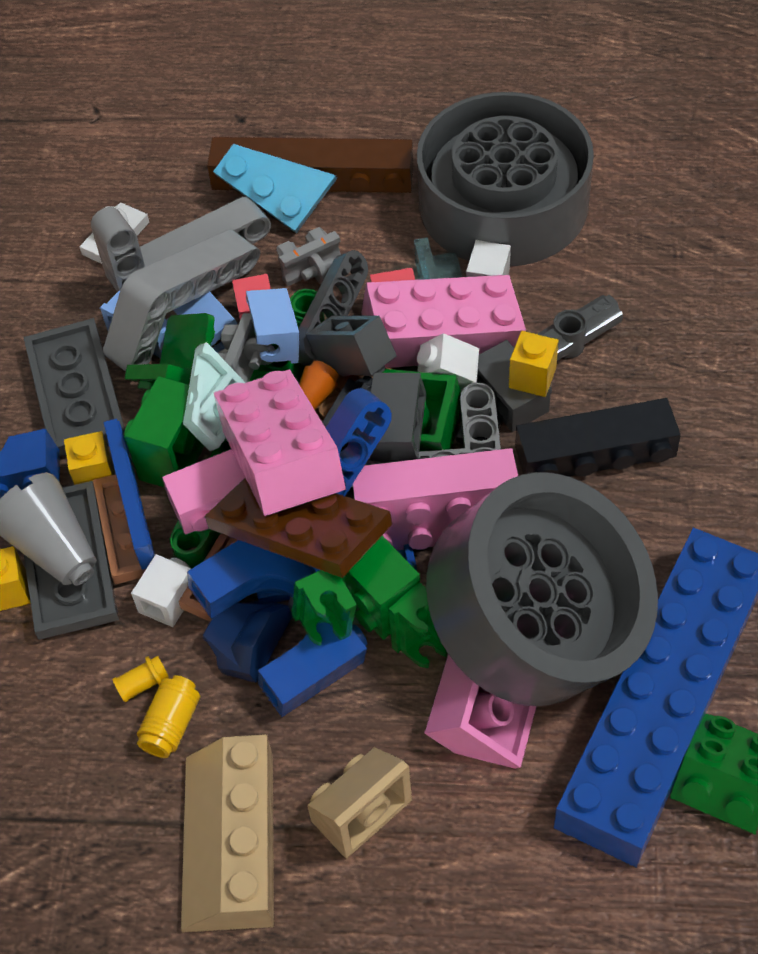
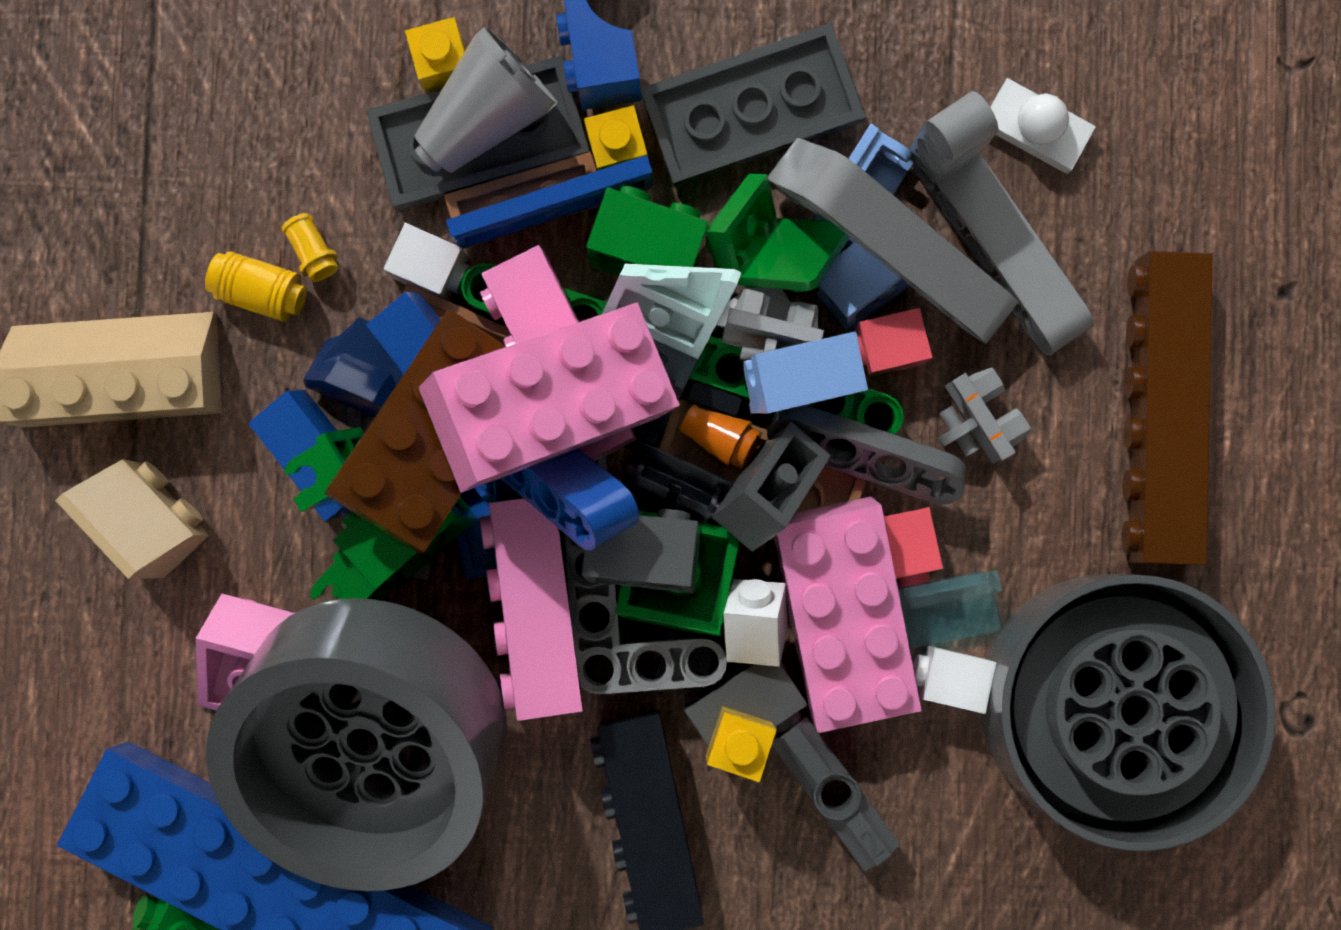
camera: 85 degrees right, 30 degrees up
(275, 184) = (1113, 356): medium azure wing -> none

